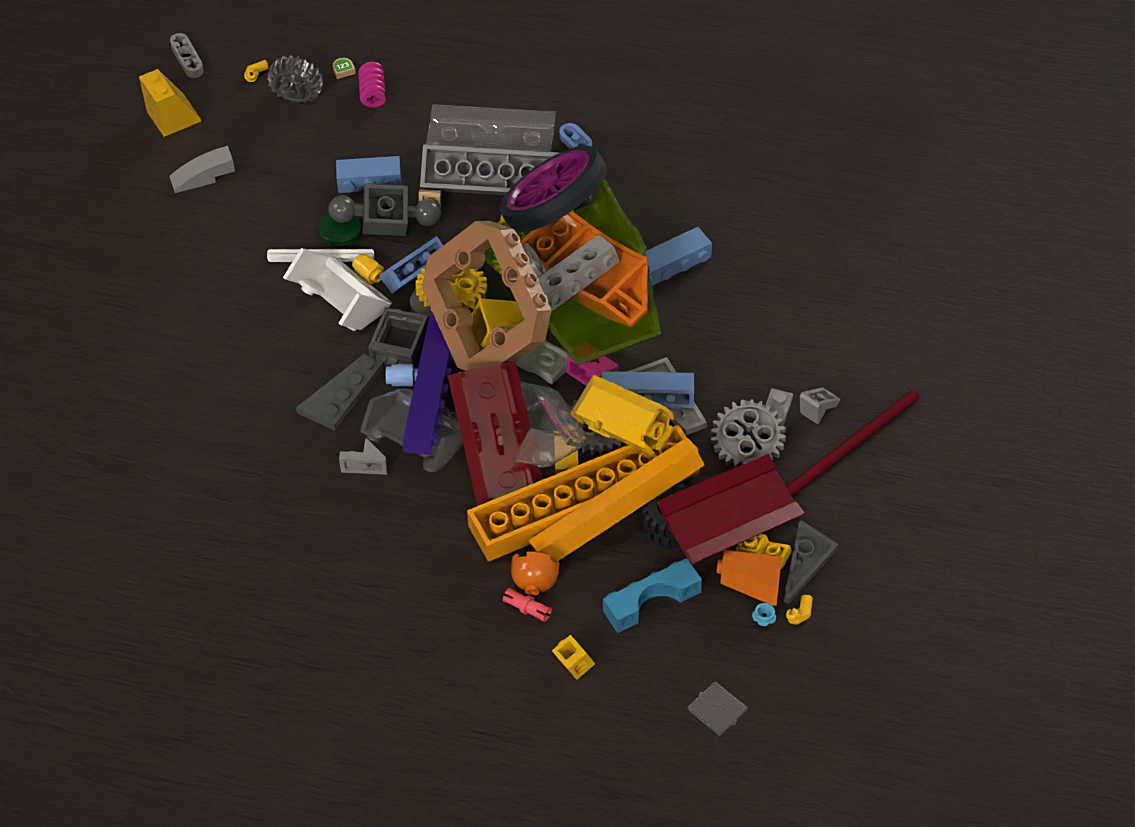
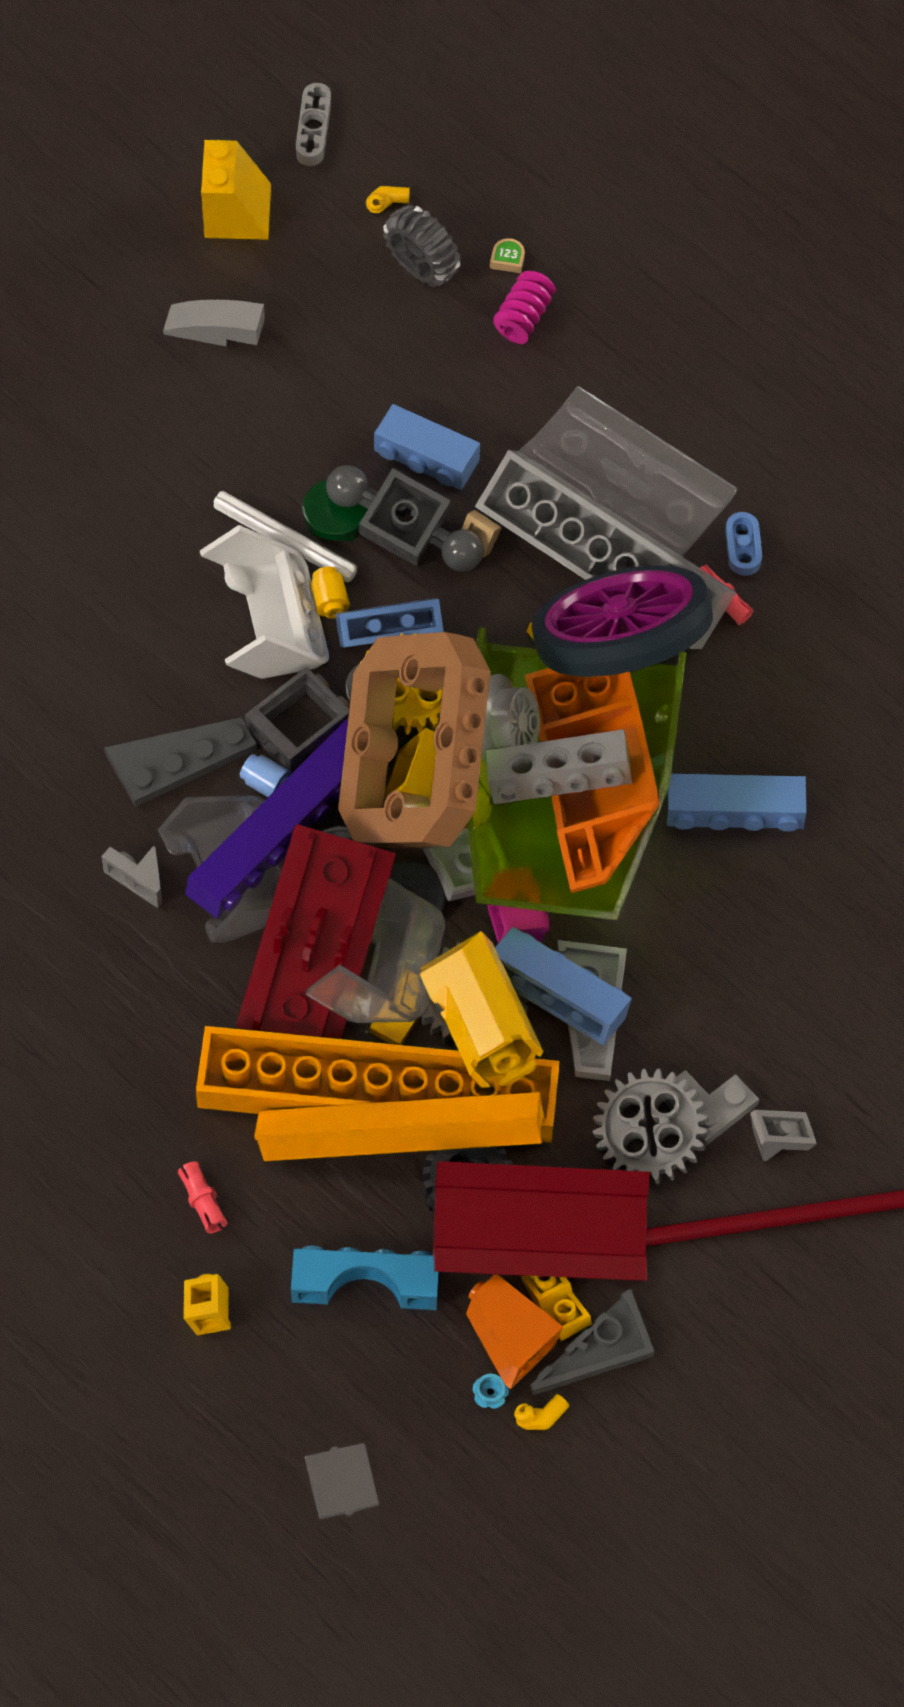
camera: 30 degrees right, 10 degrees up
(534, 572) = (234, 1162): orange cylinder -> none

